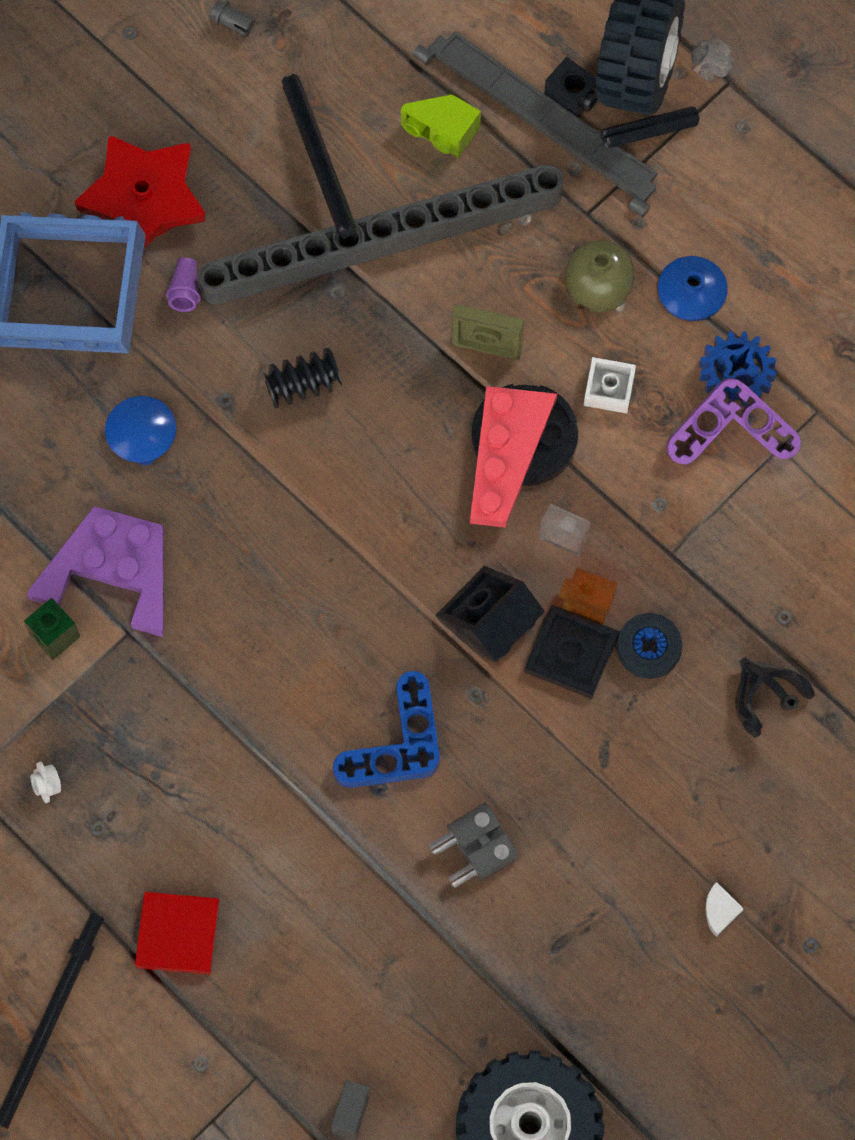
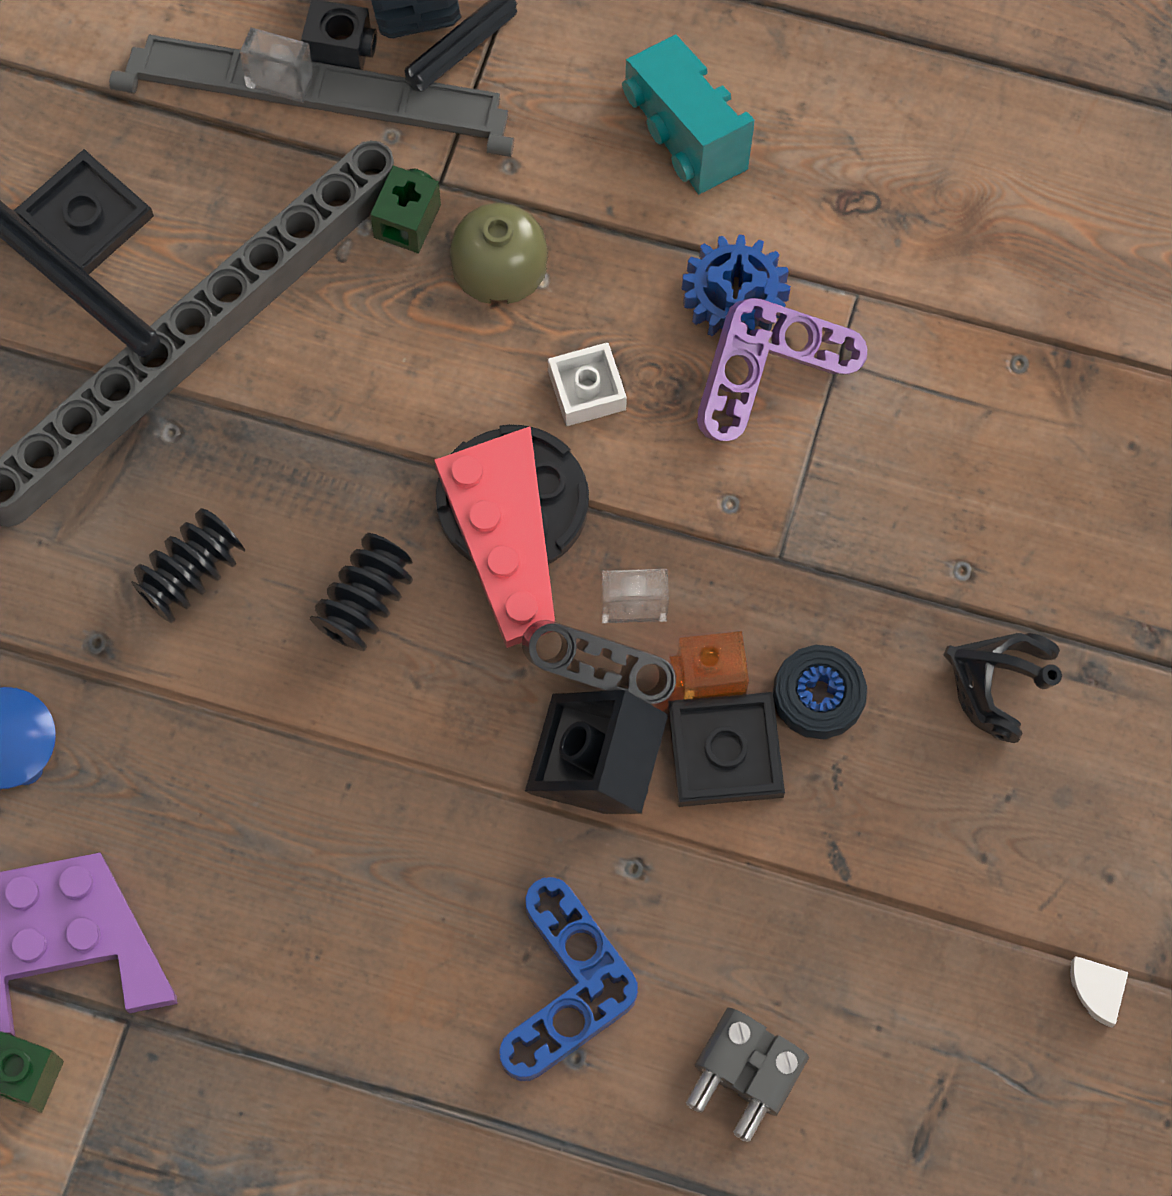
camera: 30 degrees left, 0 degrees up
(355, 128) = (85, 211): none -> black tile
(399, 446) = (362, 590): none -> black piece
(443, 122) = (194, 152): lime slope -> none
(487, 332) = (399, 389): olive tile -> none
(519, 545) = (603, 677): none -> black beam
(521, 89) = (276, 65): none -> clear piece
(555, 231) = (406, 208): none -> dark green brick
(687, 301) = (616, 233): blue dish -> none
(768, 243) = (688, 114): none -> teal wedge

